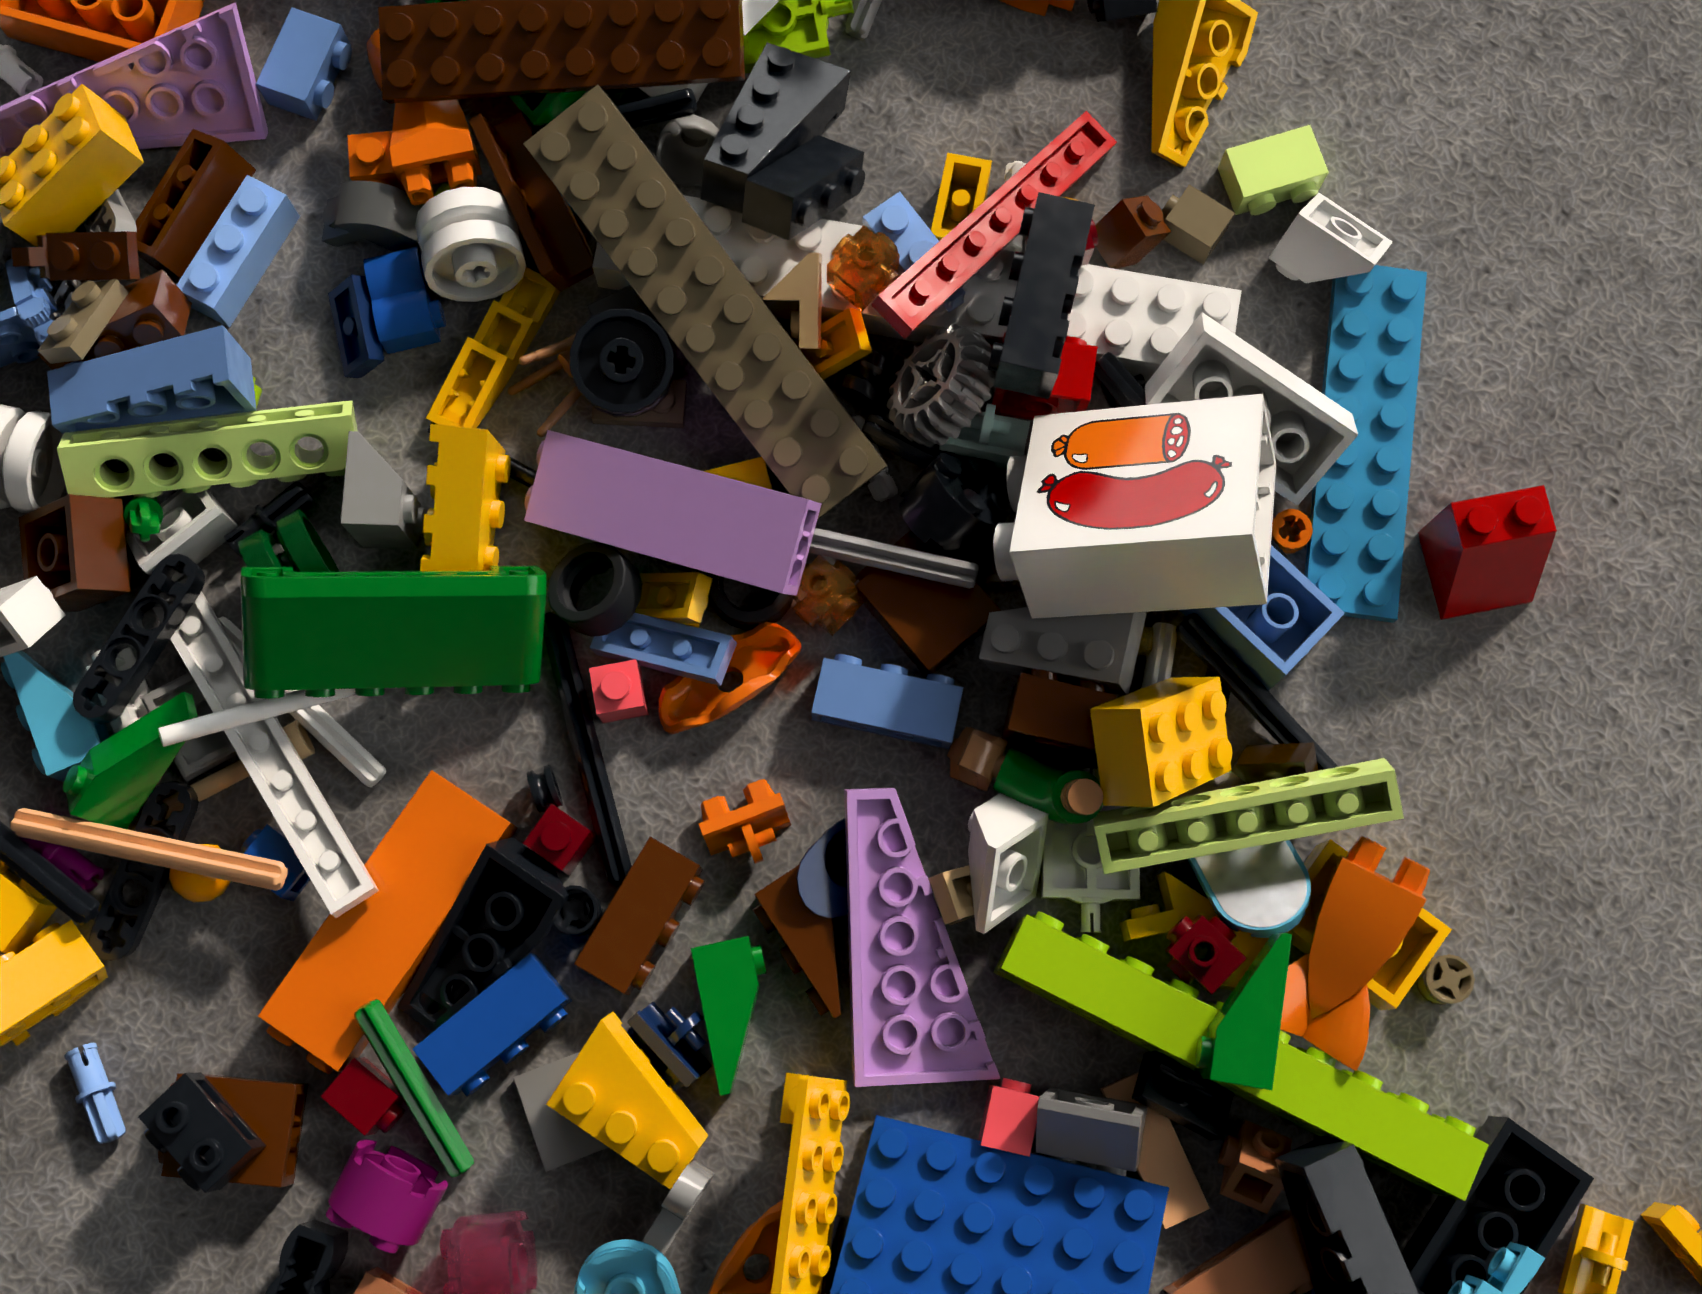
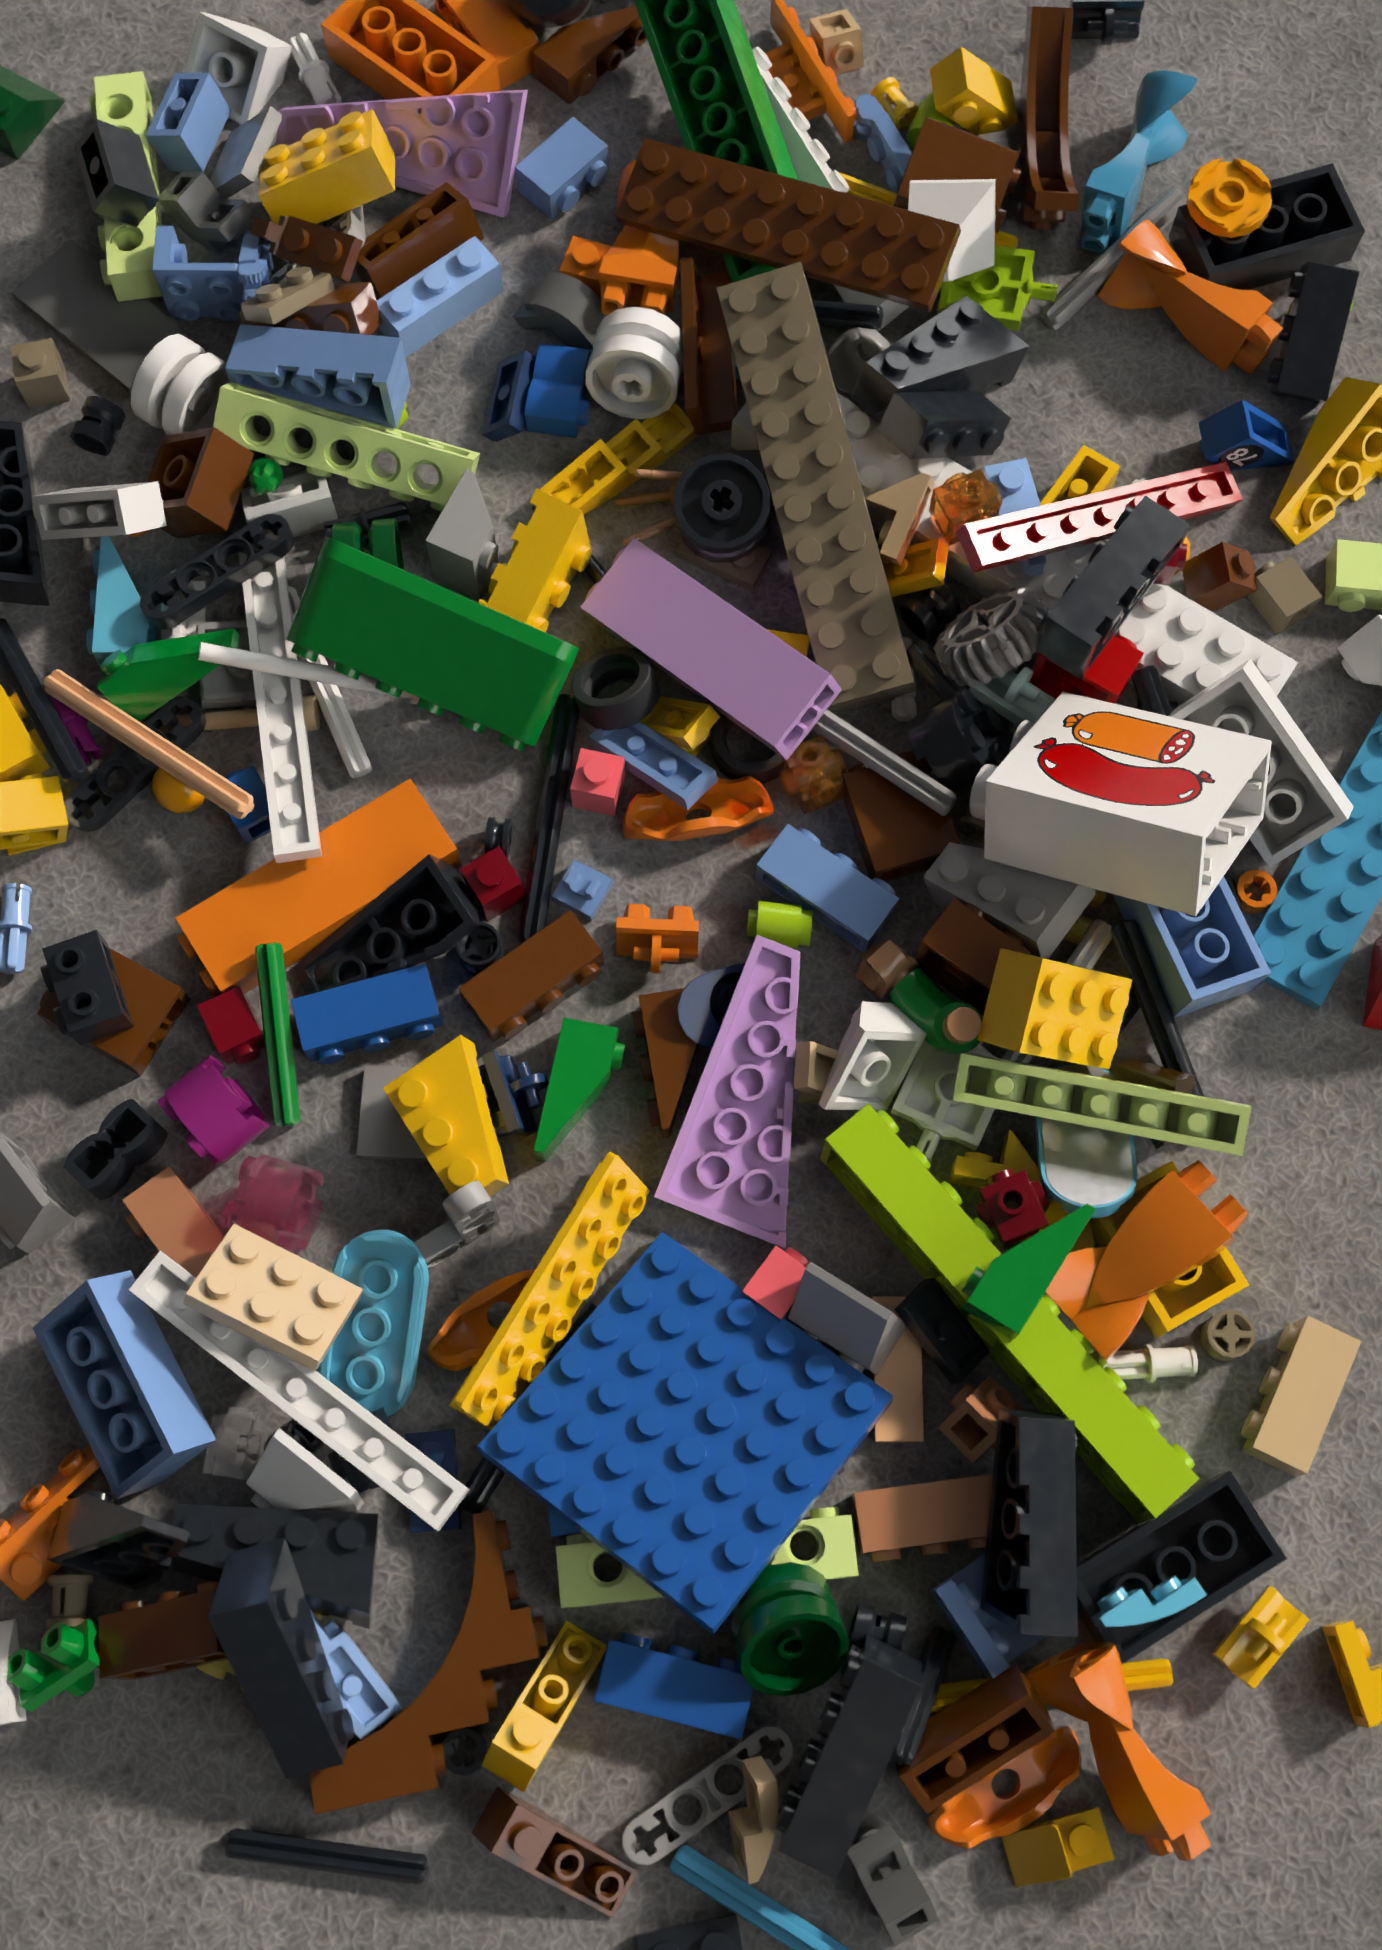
camera: 25 degrees right, 5 degrees down
(649, 805) = (582, 890): none -> medium blue tile
(858, 759) = (781, 923): none -> lime brick
(1094, 80) = (1245, 438): none -> blue slope
(1393, 1033) = (1153, 1362): none -> white axle
(1535, 1007) = (1299, 1395): none -> tan brick

